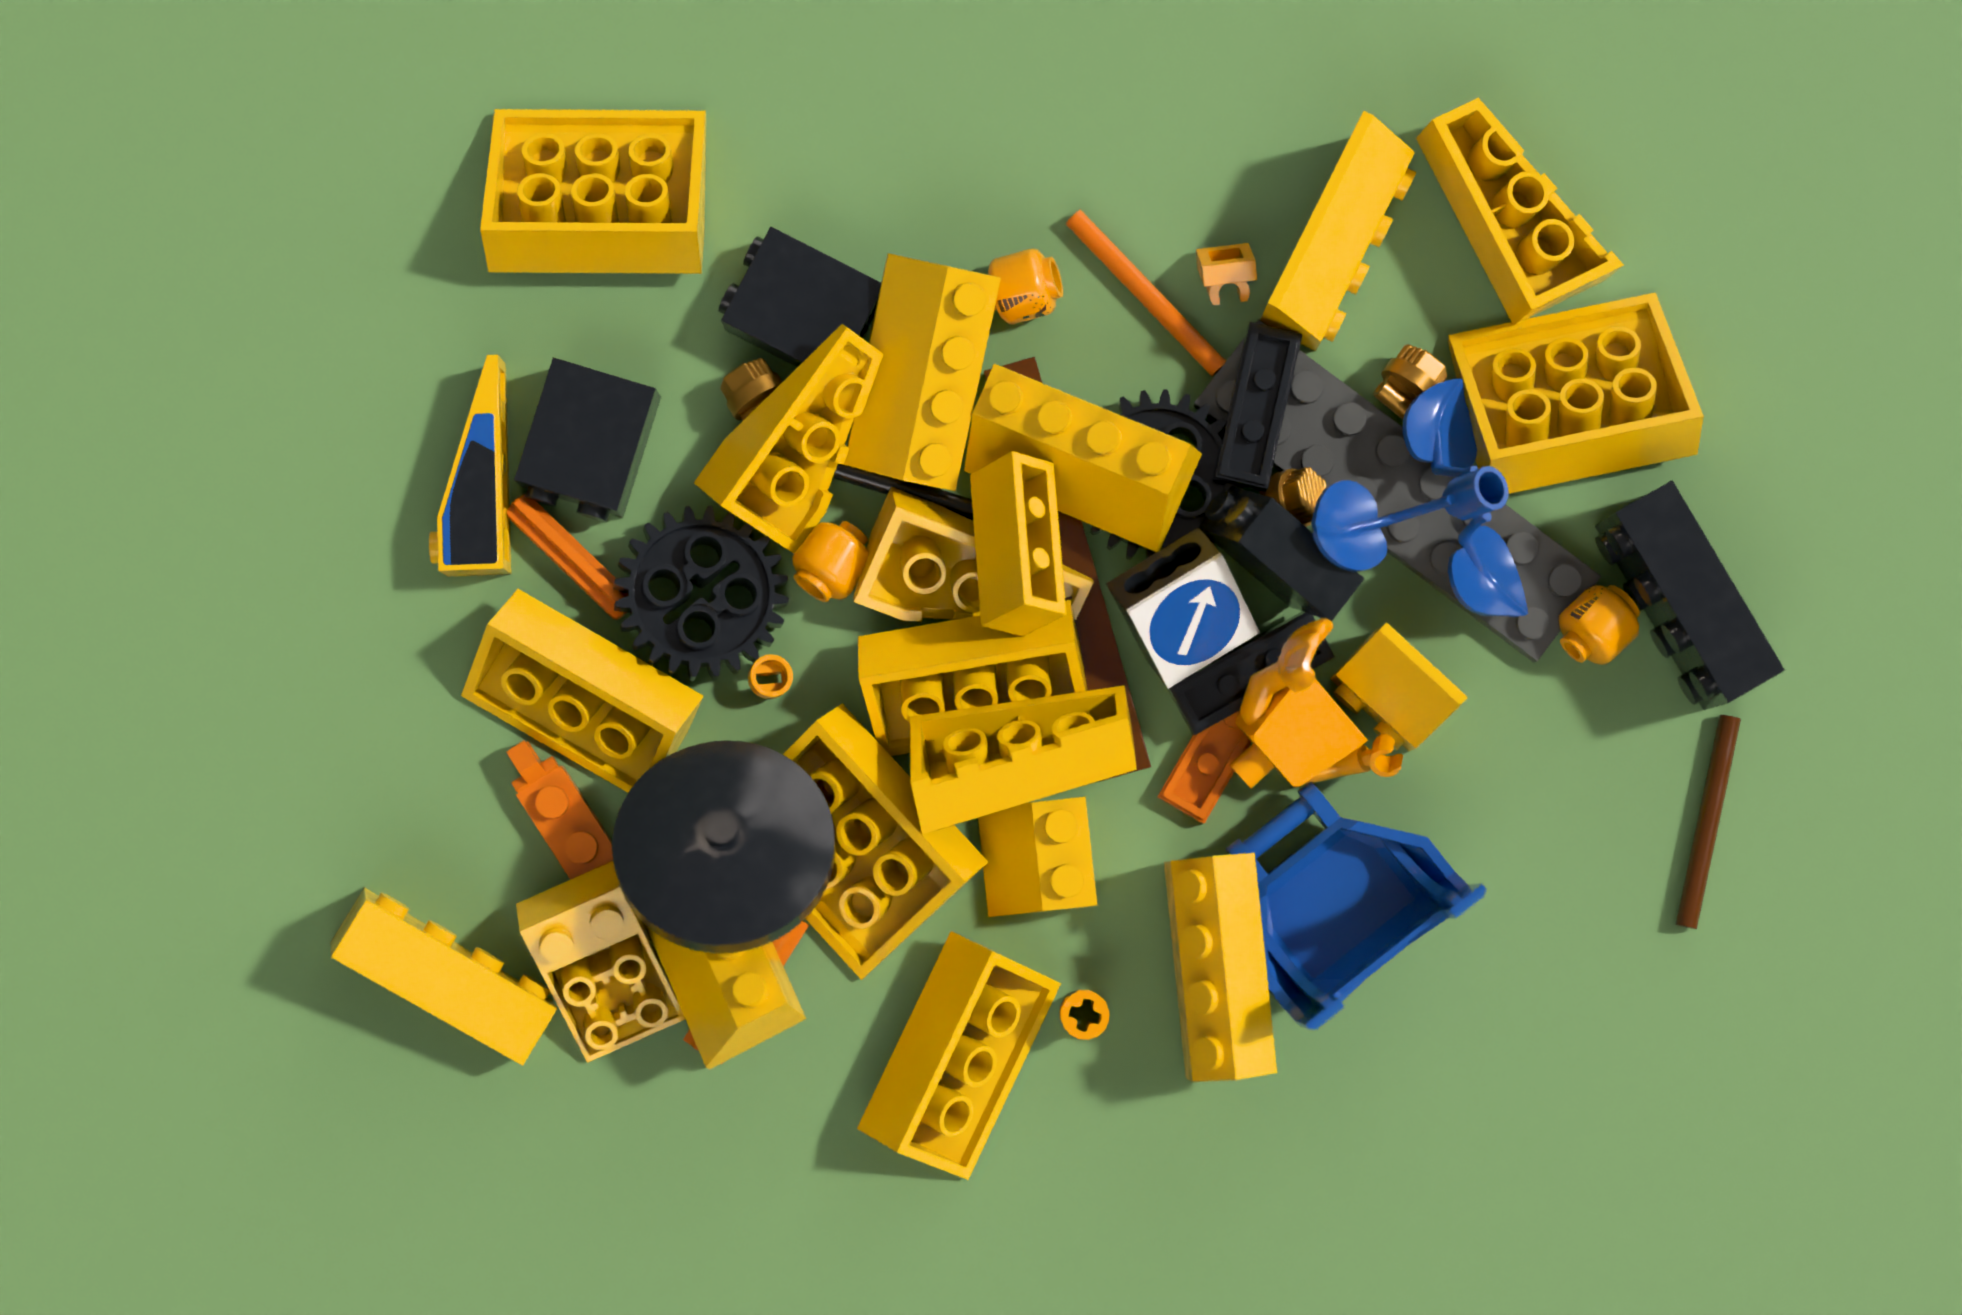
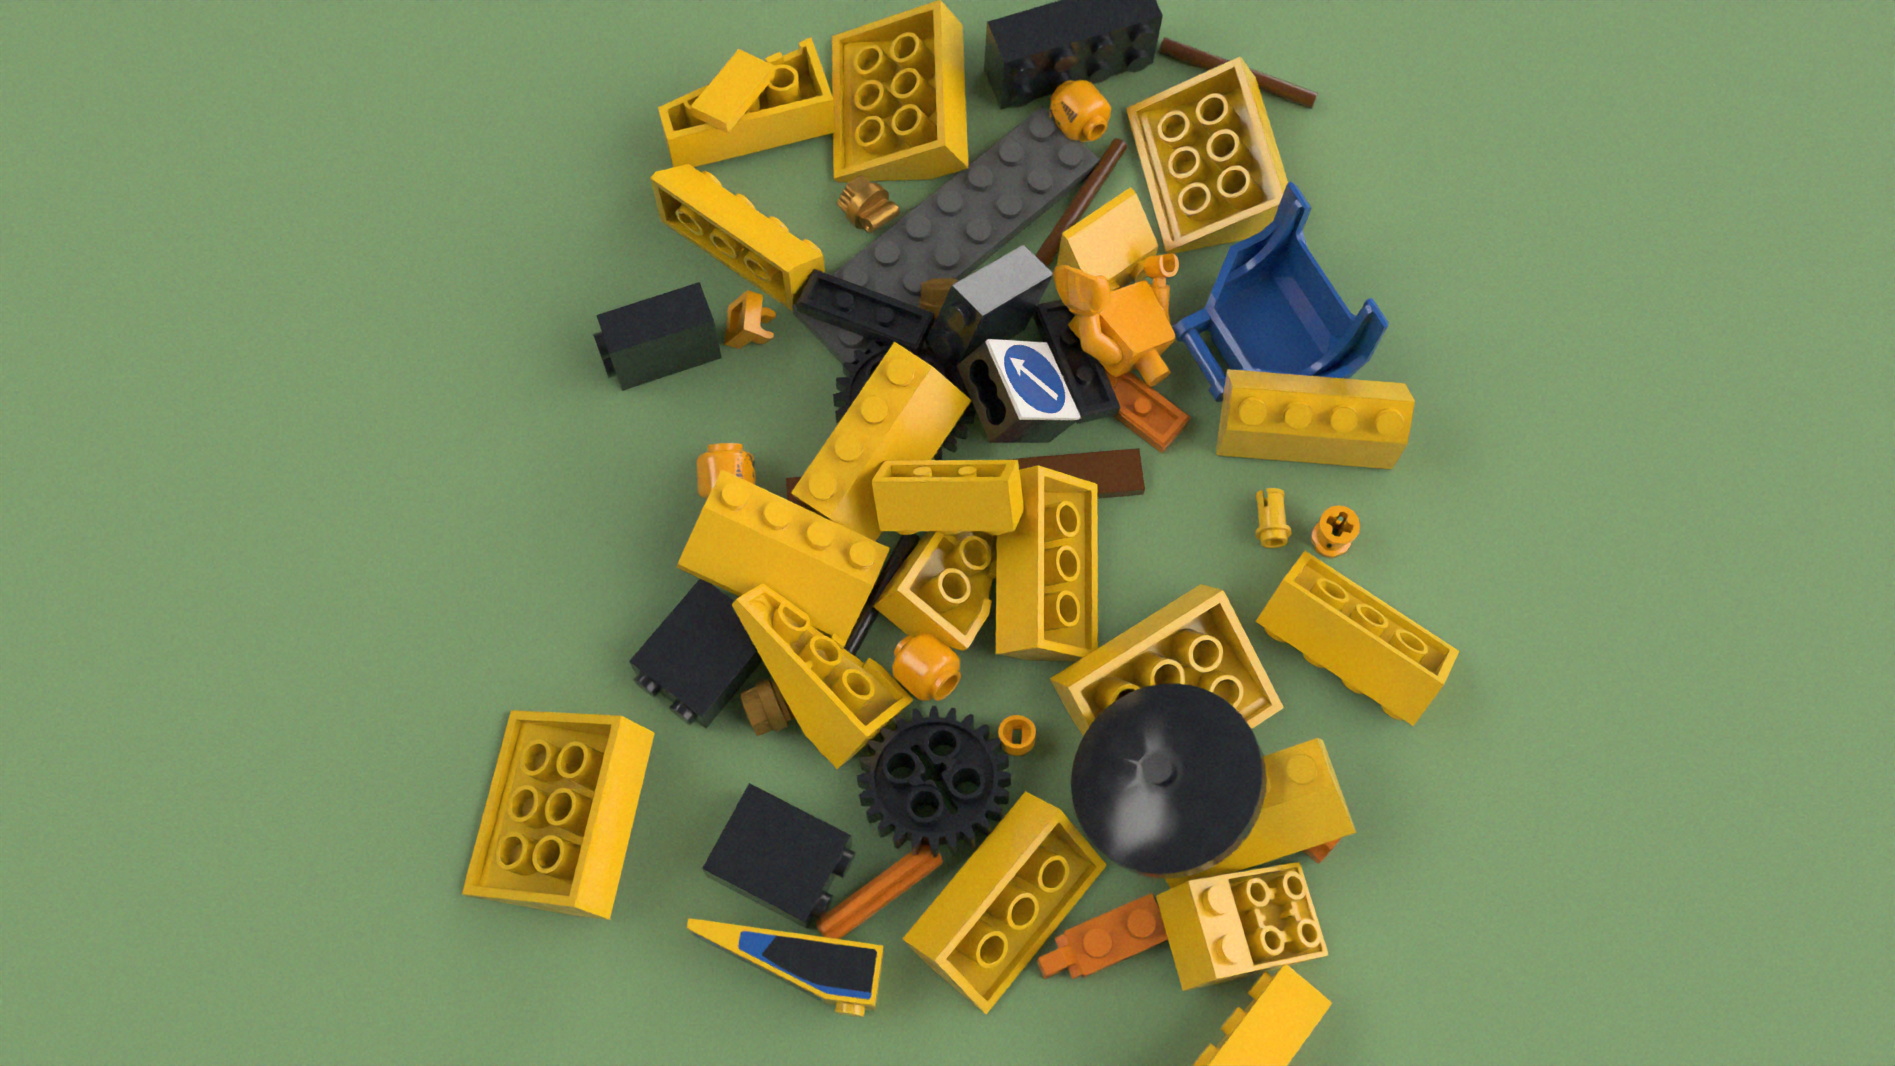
camera: 85 degrees left, 15 degrees down
(1016, 753) = (1117, 539): yellow wedge -> none
(1038, 857) = (1202, 542): yellow slope -> none
(1090, 937) = (1272, 519): none -> yellow pin
(1146, 292) = (750, 387): orange bar -> none
(1174, 168) = (657, 336): none -> black brick
(1437, 432) = (974, 154): blue plant -> none
(1470, 645) = (1082, 200): none -> reddish brown bar
(1515, 184) = (733, 90): none -> yellow tile
(1564, 803) = (1209, 158): none -> yellow slope

